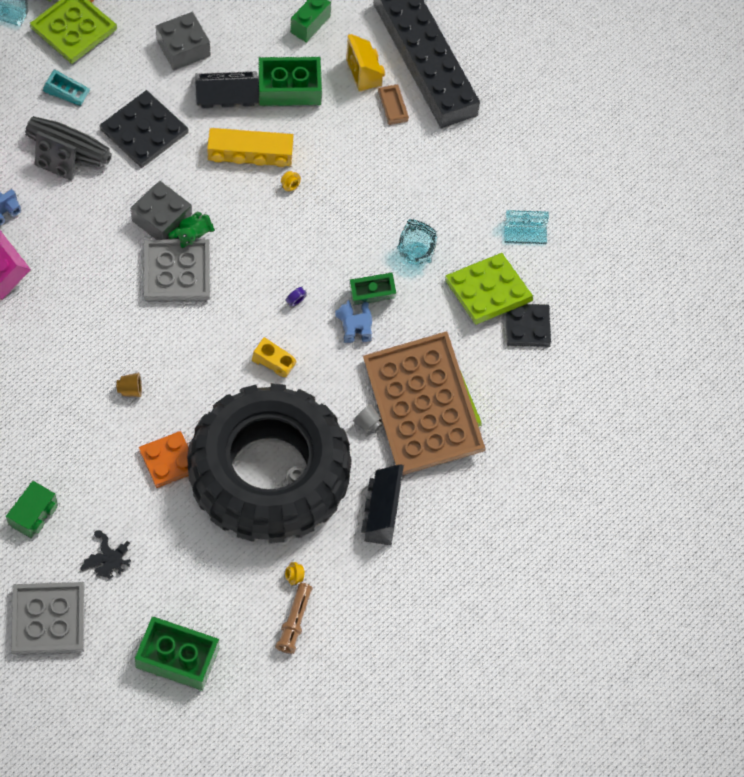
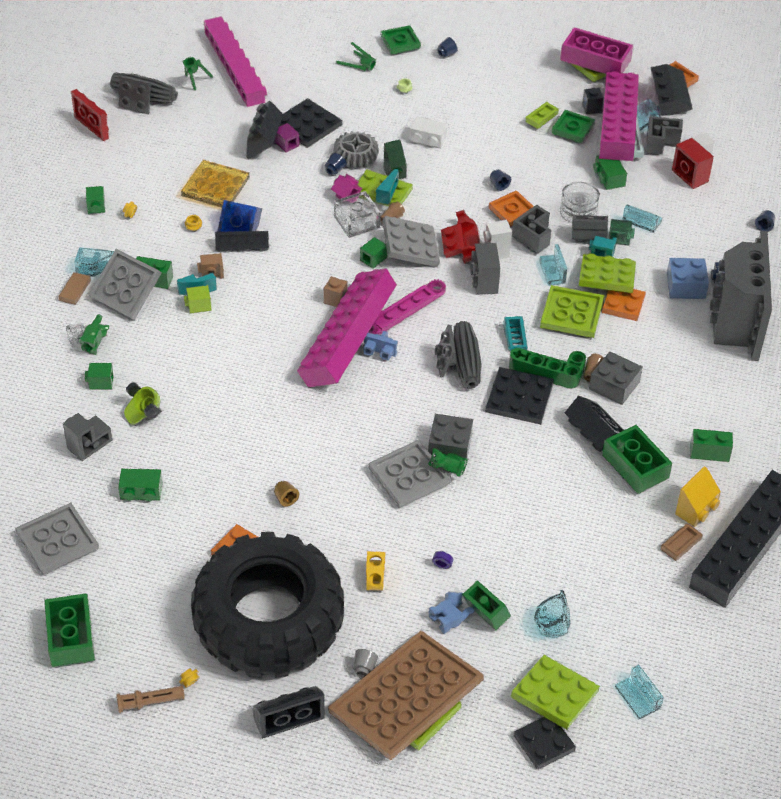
camera: 65 degrees right, 15 degrees down
(110, 557) = (131, 554): black piece -> none
(146, 74) = (564, 373): none -> green beam
(155, 50) = (591, 364): none -> medium nougat cone
(250, 147) = (556, 465): yellow brick -> none
(290, 181) = (546, 502): yellow plate -> none

